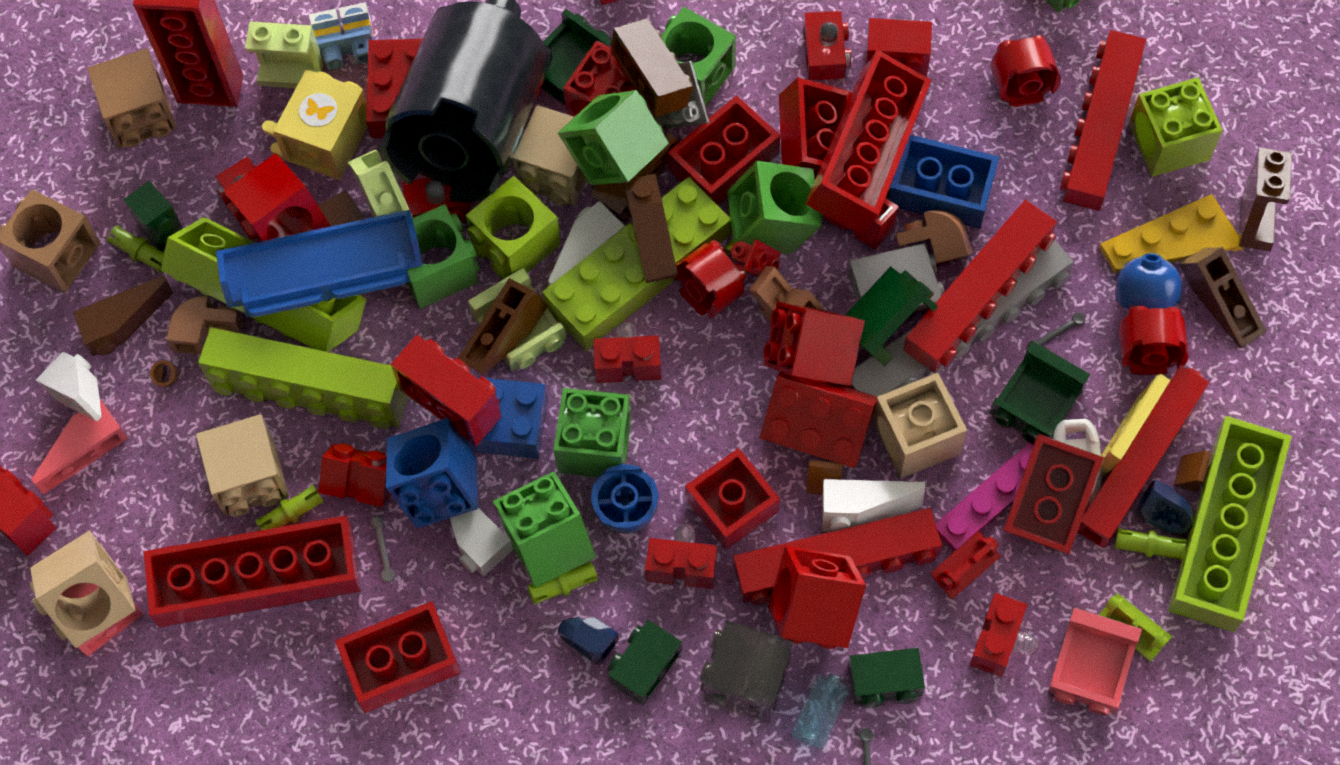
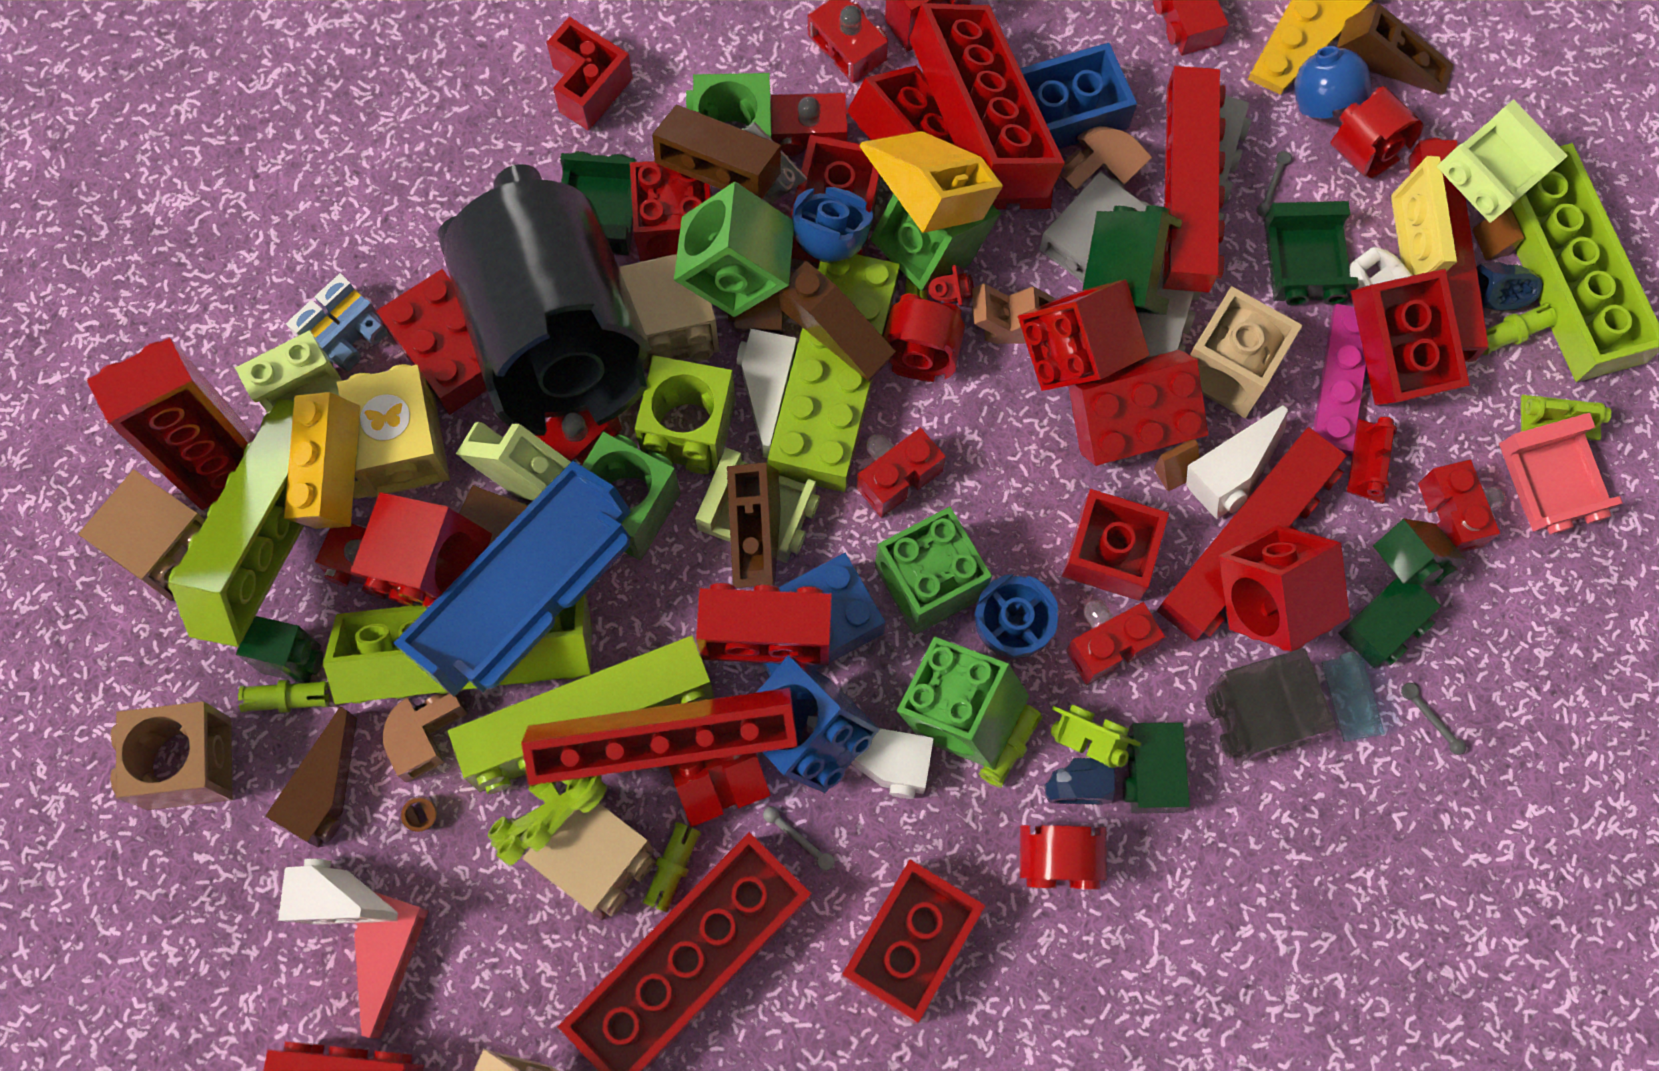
camera: 40 degrees left, 5 degrees up
(193, 125) = (241, 541): none -> lime brick
(252, 410) = (536, 828): none -> lime plant
(258, 112) = (322, 461): none -> yellow brick
(328, 411) = (659, 736): none -> red brick
(535, 668) = (1063, 855): none -> red brick
(615, 609) = (1107, 743): none -> lime hinge
(694, 160) = (831, 224): none -> blue cylinder
(752, 84) = (804, 115): none -> red piece
(778, 170) = (934, 179): none -> yellow slope
(936, 641) = (1420, 553): none -> dark green brick
(1211, 412) = (1501, 161): none -> yellowish green panel

